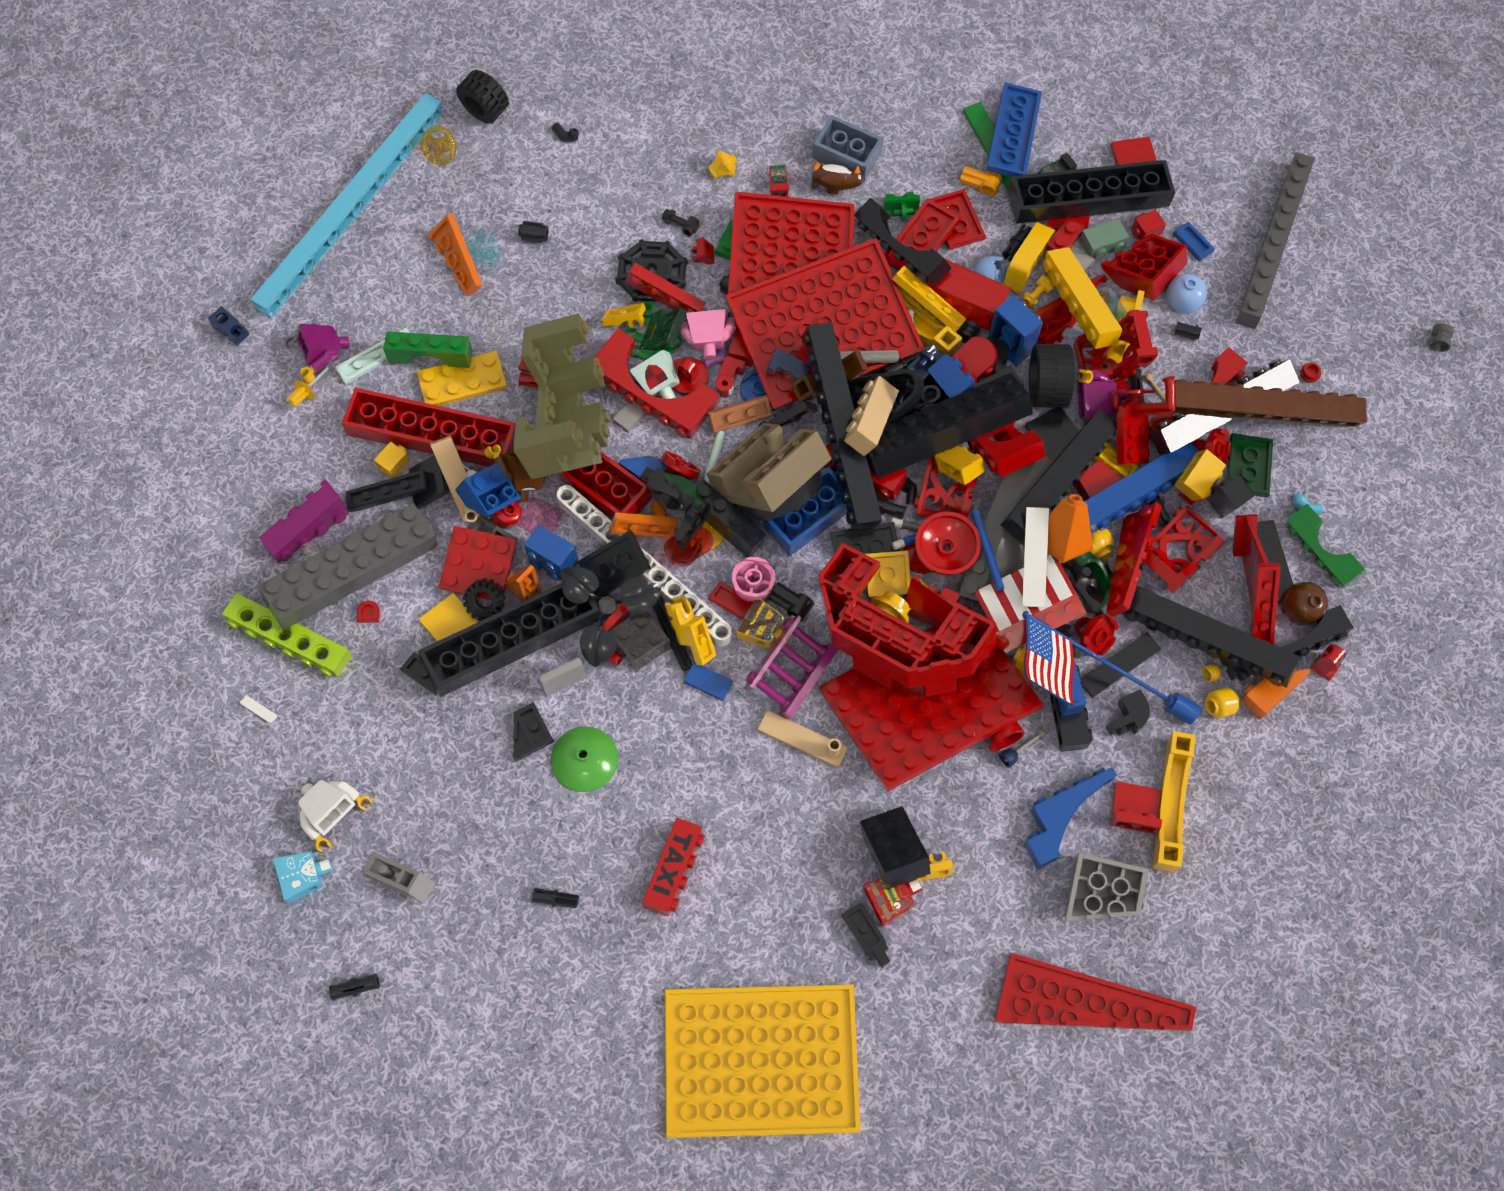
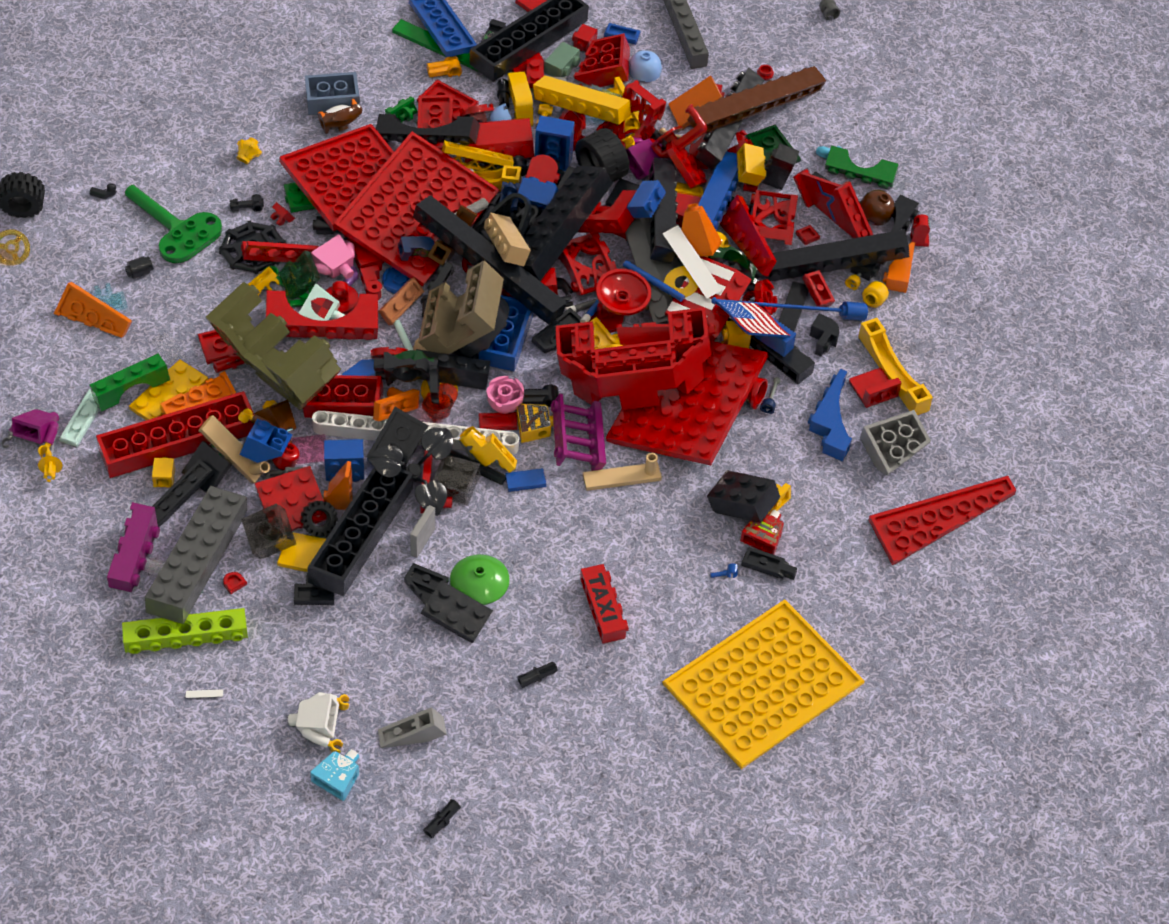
camera: 40 degrees left, 15 degrees down
(426, 584) = (268, 531): none -> clear smoke brick
(497, 404) = (209, 391): none -> orange wing
(532, 781) = (456, 612): none -> black plate
(602, 223) = (185, 236): none -> green piece
(778, 180) = (296, 139): leg -> none
(826, 916) = (731, 568): none -> blue hand
(960, 464) = (589, 241): yellow brick -> none
(969, 250) = (478, 112): none -> red tile
(1002, 562) = (681, 271): none -> yellow piece
(1045, 456) = (646, 199): none -> blue brick
(1163, 660) = (818, 289): none -> red brick
(1188, 330) = (669, 87): black pin -> none
(1206, 365) = (697, 96): none -> orange tile
(1206, 587) = (807, 235): none -> red tile

